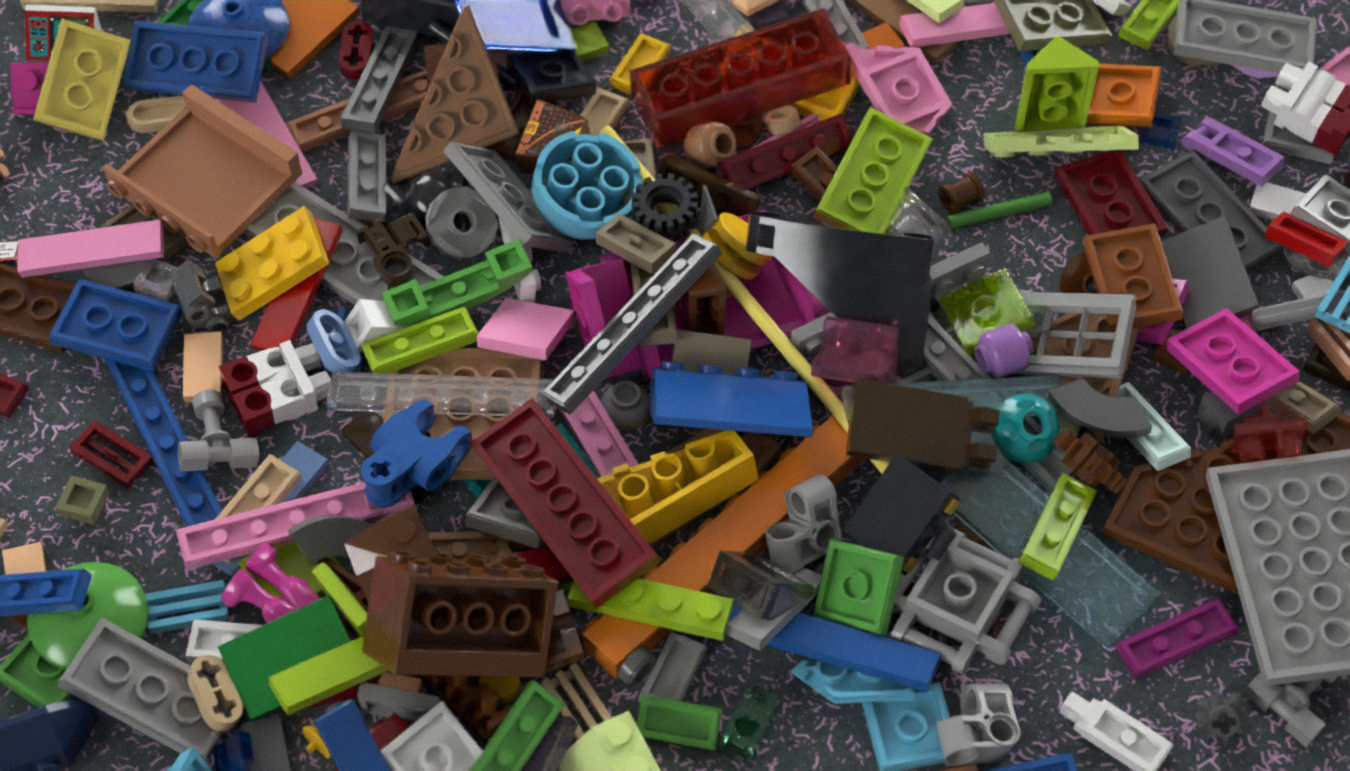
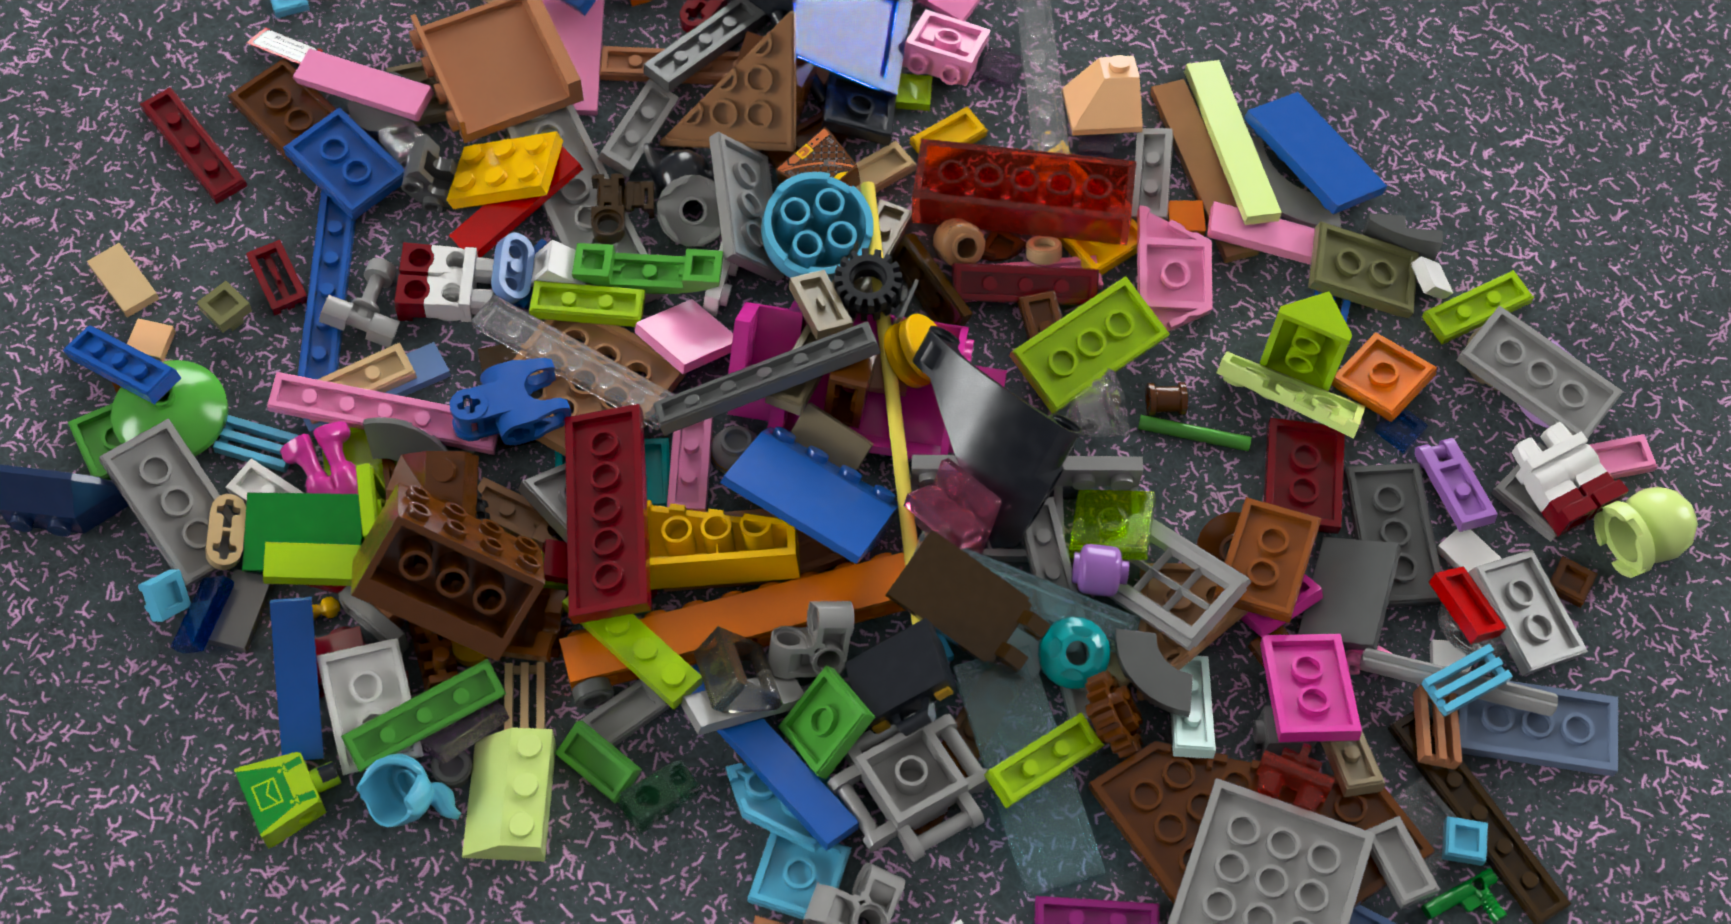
camera: 25 degrees right, 5 degrees up
(201, 363) = (402, 225): light nougat tile -> none

